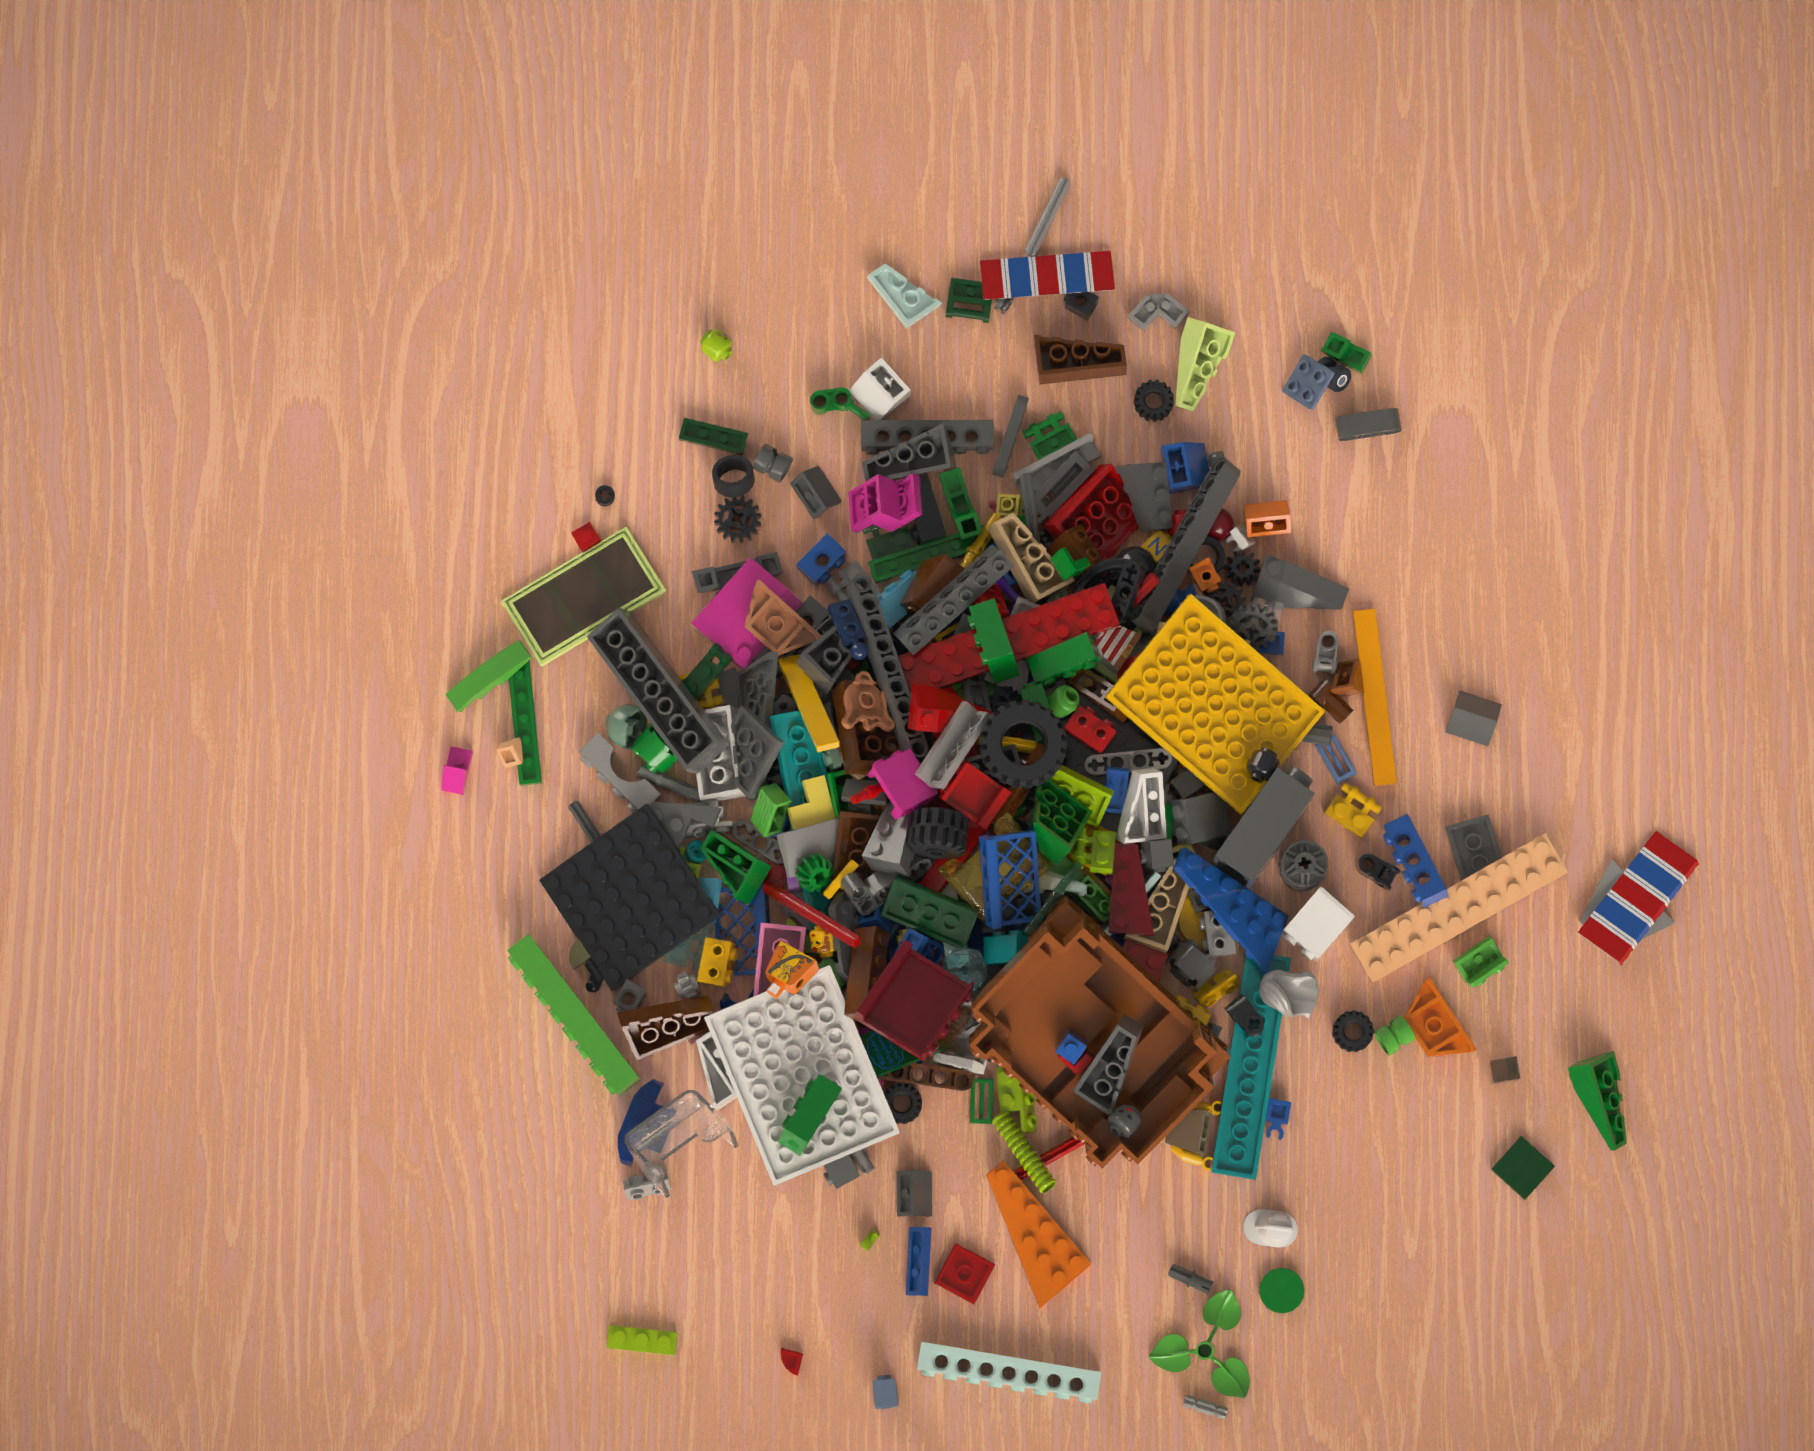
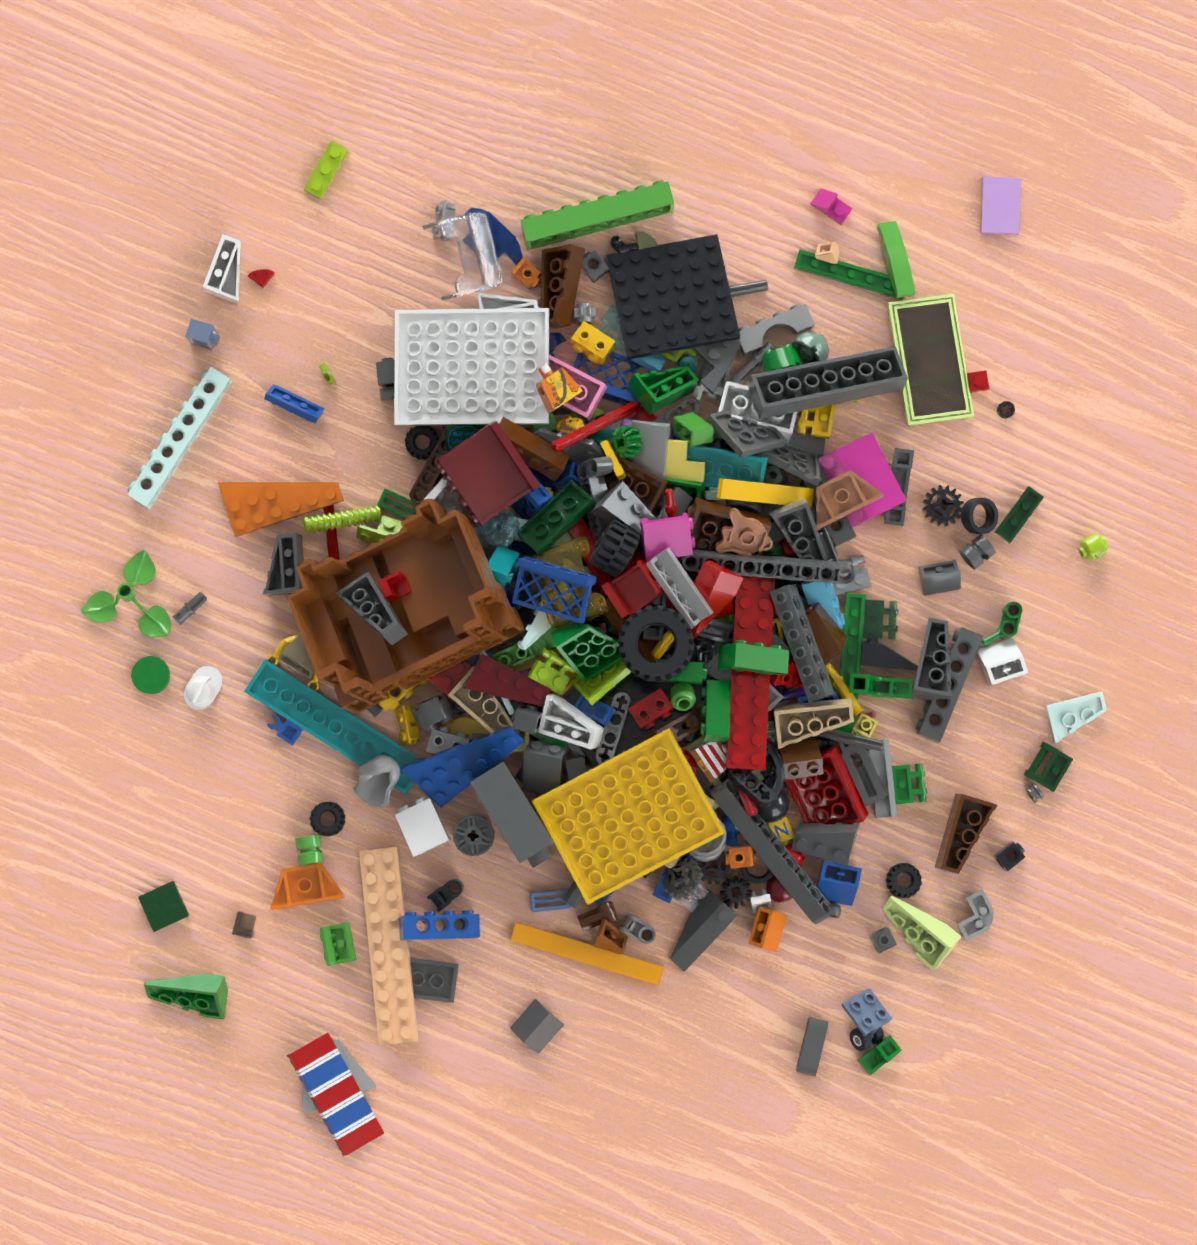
camera: 105 degrees right, 5 degrees up
(382, 590) = (1000, 205): none -> lavender tile
(669, 1076) = (518, 274): none -> orange brick
(707, 671) = (827, 428): dark green plate -> none
(802, 1401) = (225, 270): none -> white wedge
(808, 1114) = (437, 357): green wedge -> none
(827, 548) = (883, 547): blue brick -> none
(848, 628) = (813, 550): dark blue plate -> none
(885, 503) = (906, 625): dark pink bracket -> none
(914, 1193) = (348, 422): dark grey panel -> none
(964, 1273) = (270, 436): red tile -> none
(1010, 436) = (921, 752): dark grey beam -> none
(1047, 217) = (1092, 859): light grey axle -> none
(1047, 275) = (1043, 837): sticker -> none
(1053, 897) = (524, 617): clear green bar -> none
(1067, 566) = (792, 747): green panel -> none
(1071, 1046) = (403, 584): blue brick -> none
(1101, 1190) = (285, 558): none -> dark grey wedge
(1124, 1121) = (326, 602): dark grey head -> none
(1205, 1407) = (87, 577): light grey axle -> none
(1225, 396) = (882, 939): none -> dark grey brick
(1242, 1013) = (377, 735): black piece -> none
(1262, 764) = (562, 833): black head -> none
(1350, 816) = (500, 891): yellow plate -> none

